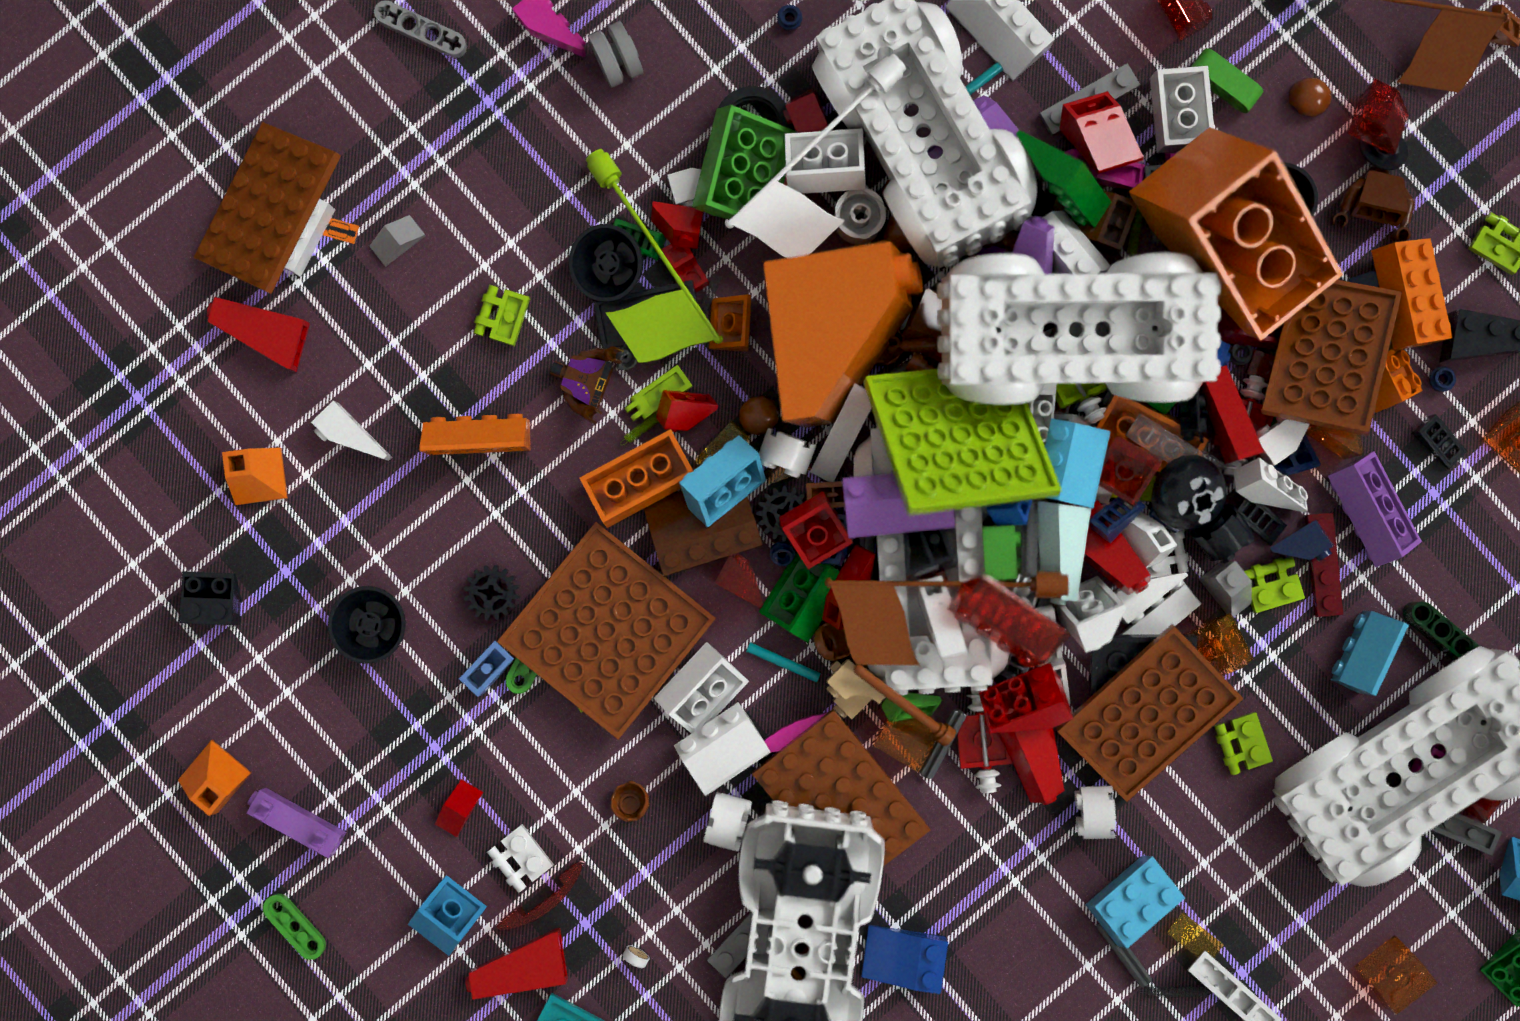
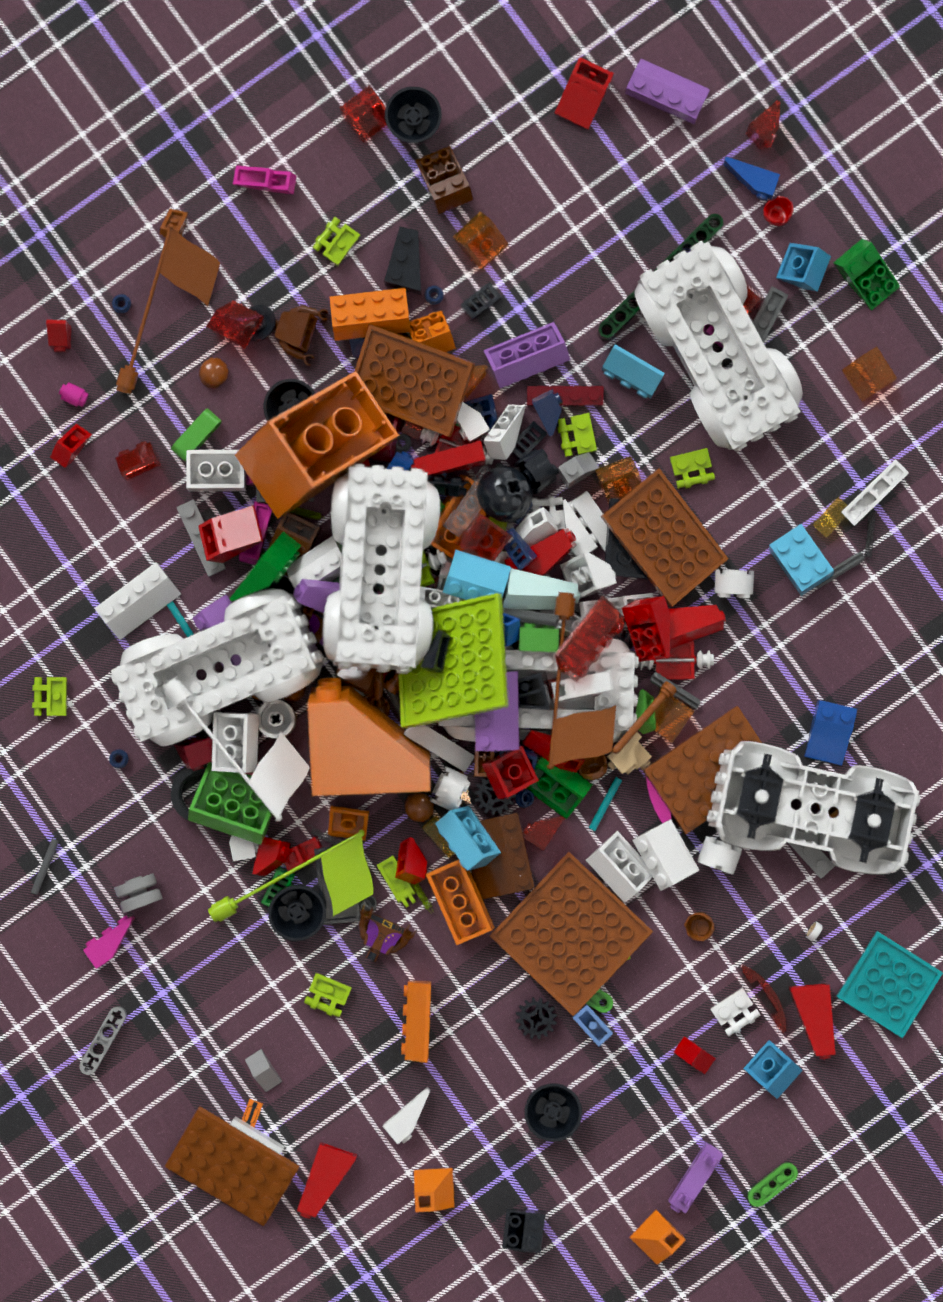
camera: 80 degrees left, 0 degrees up
(970, 414) = (436, 655): none -> black slope

